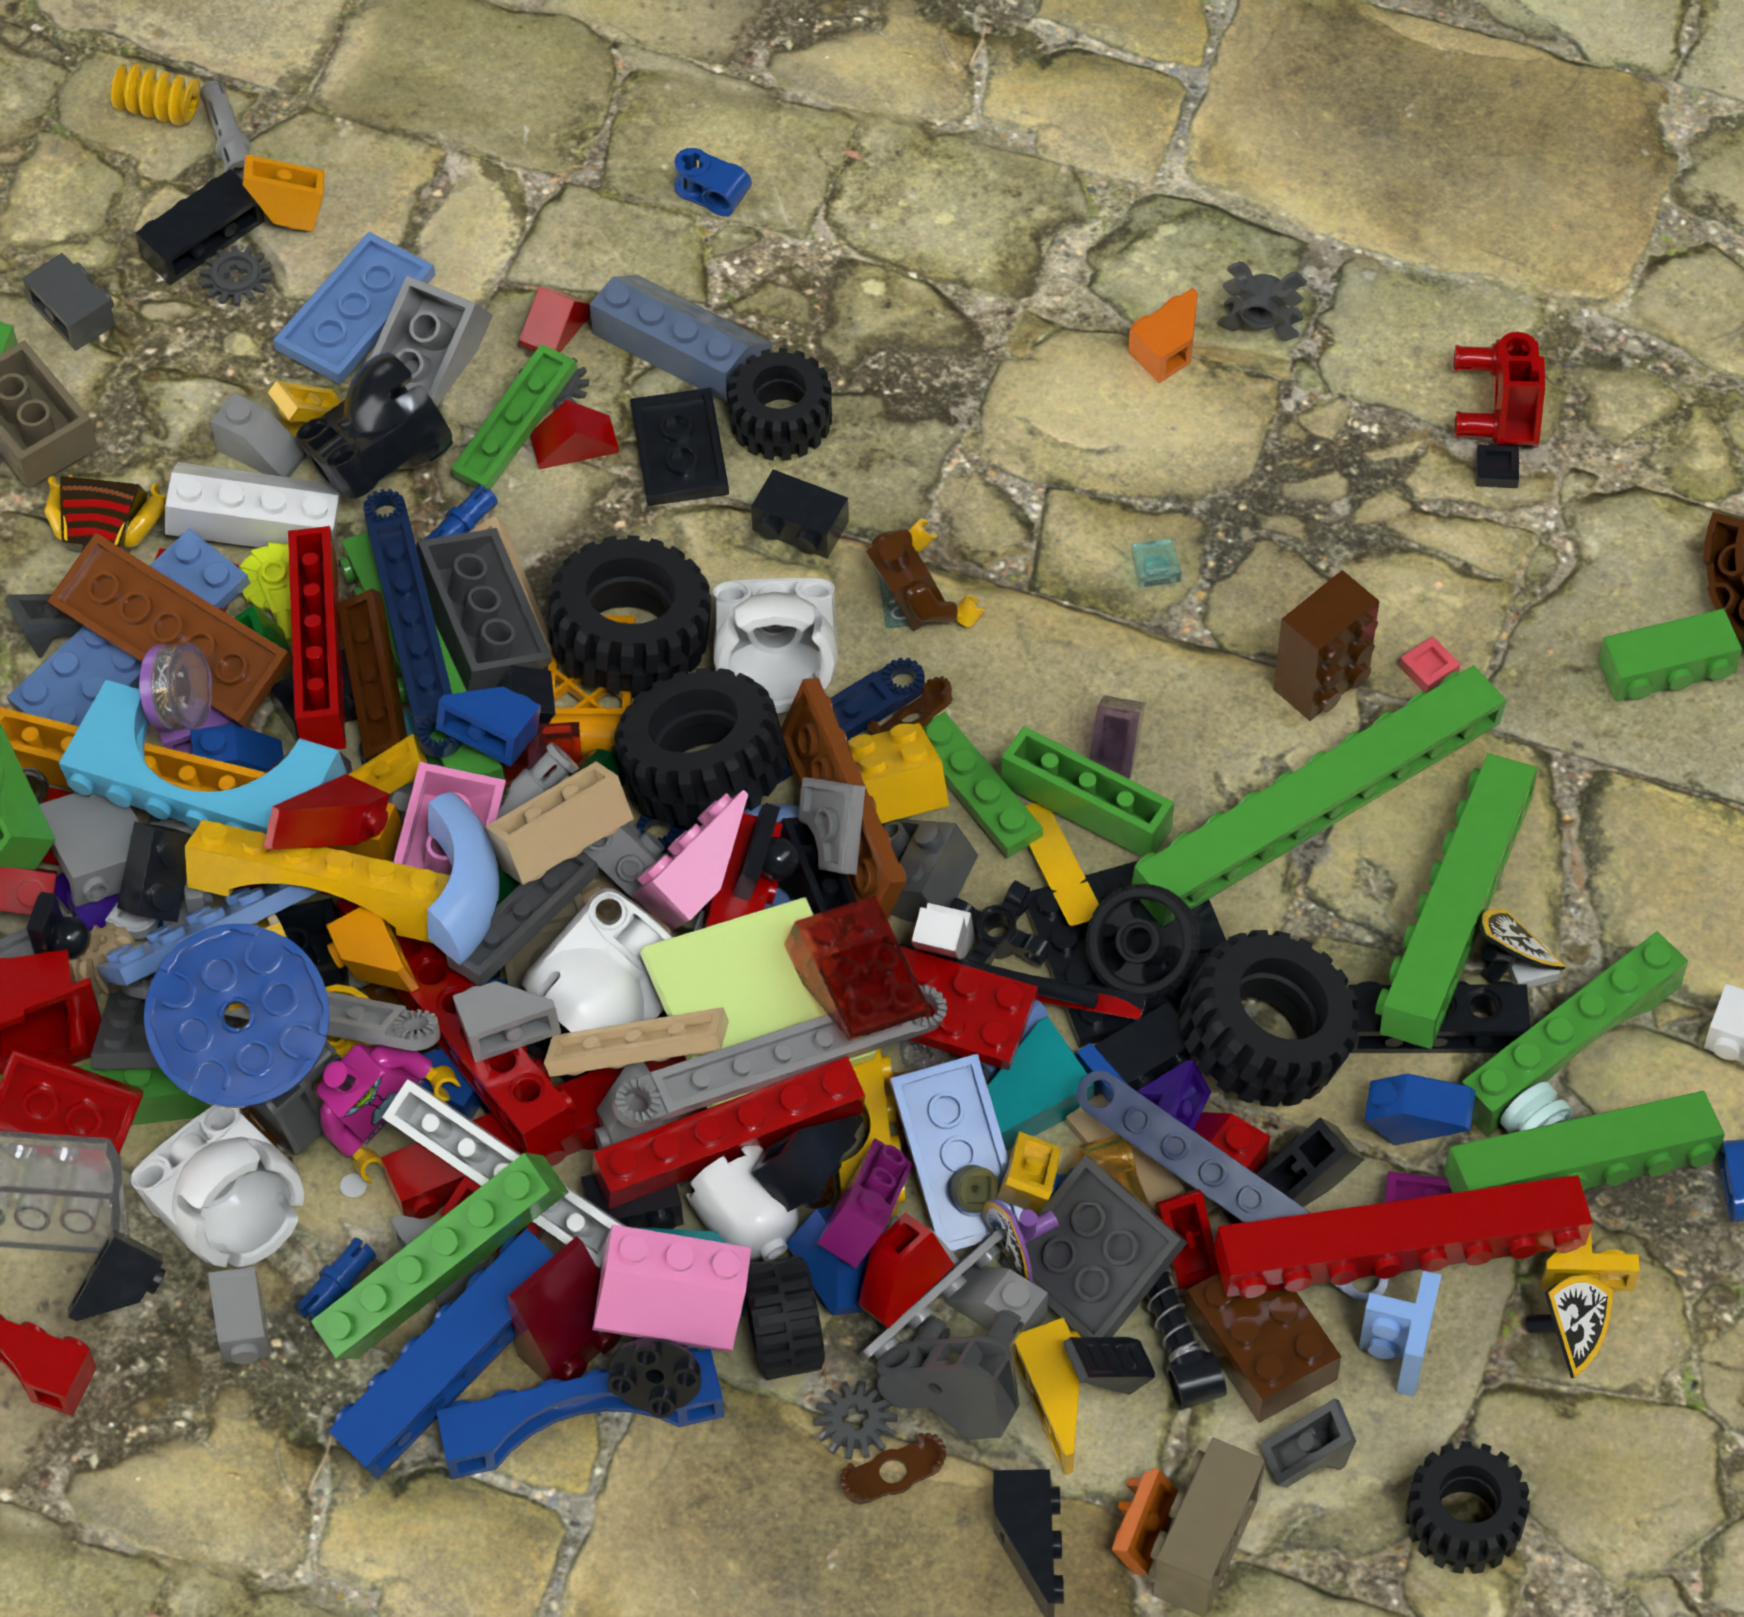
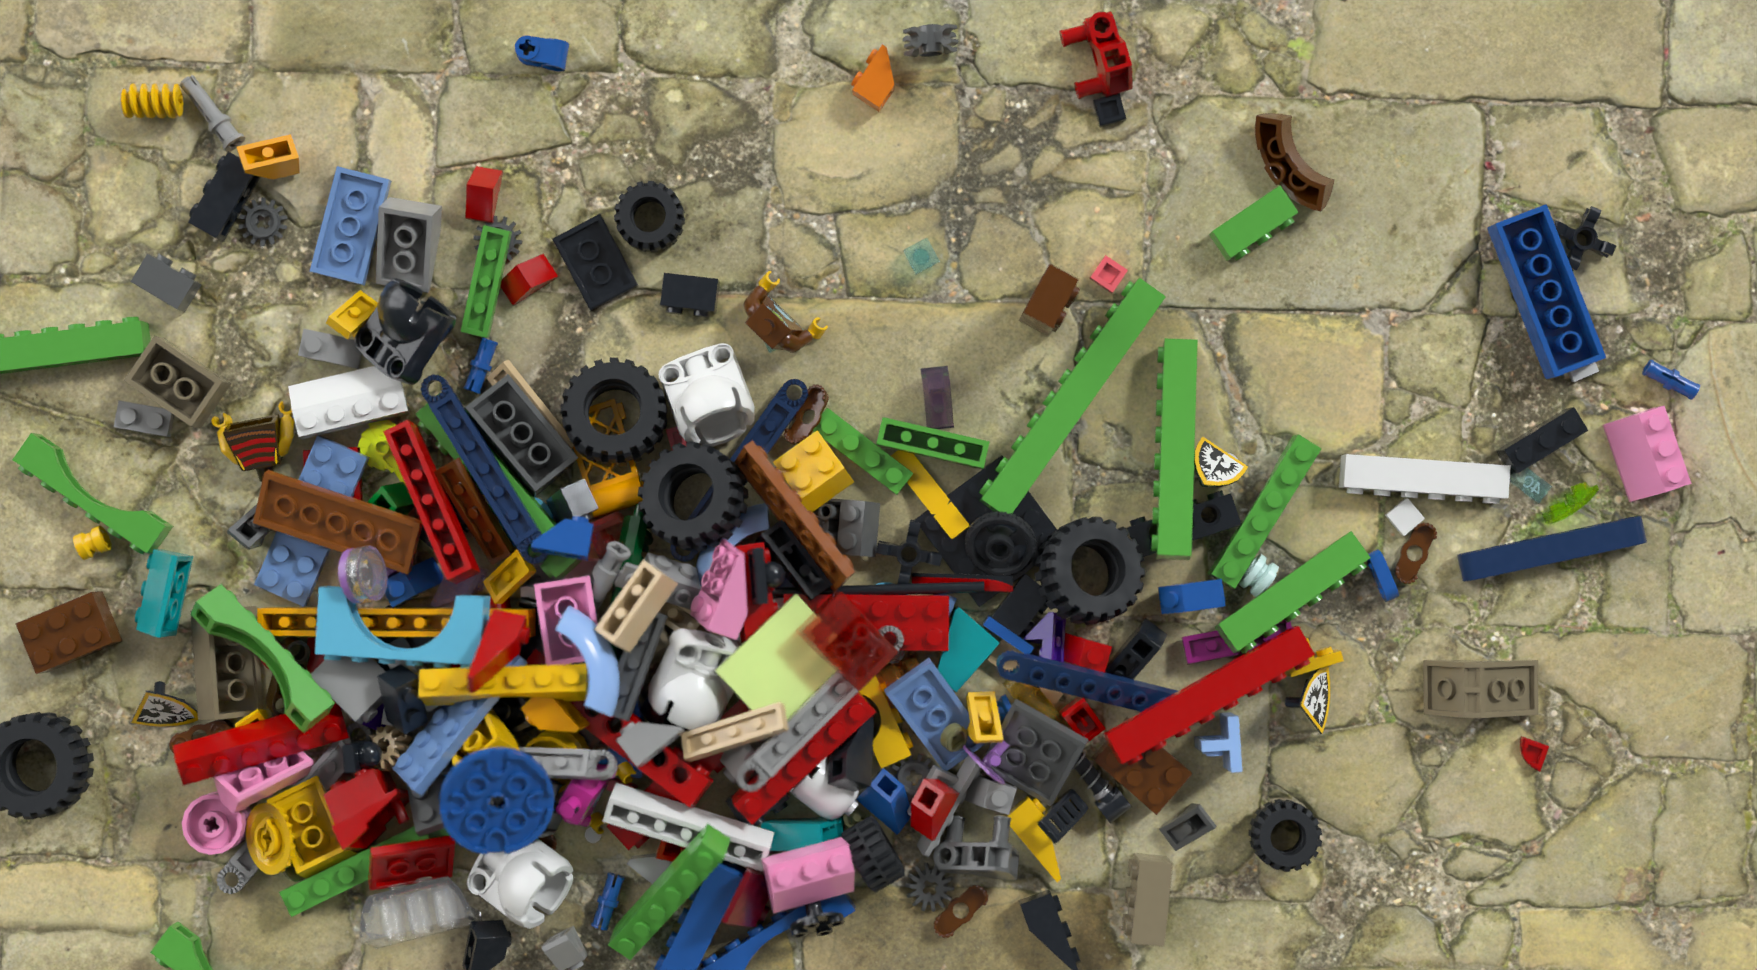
camera: 15 degrees left, 30 degrees up
(672, 333) = (565, 177): sand blue slope -> none
(835, 817) = (796, 534): light grey tile -> none
(866, 1203) = (898, 773): magenta slope -> none
(944, 931) = (883, 581): white slope -> none
(1144, 1519) = (1111, 904): orange plate -> none

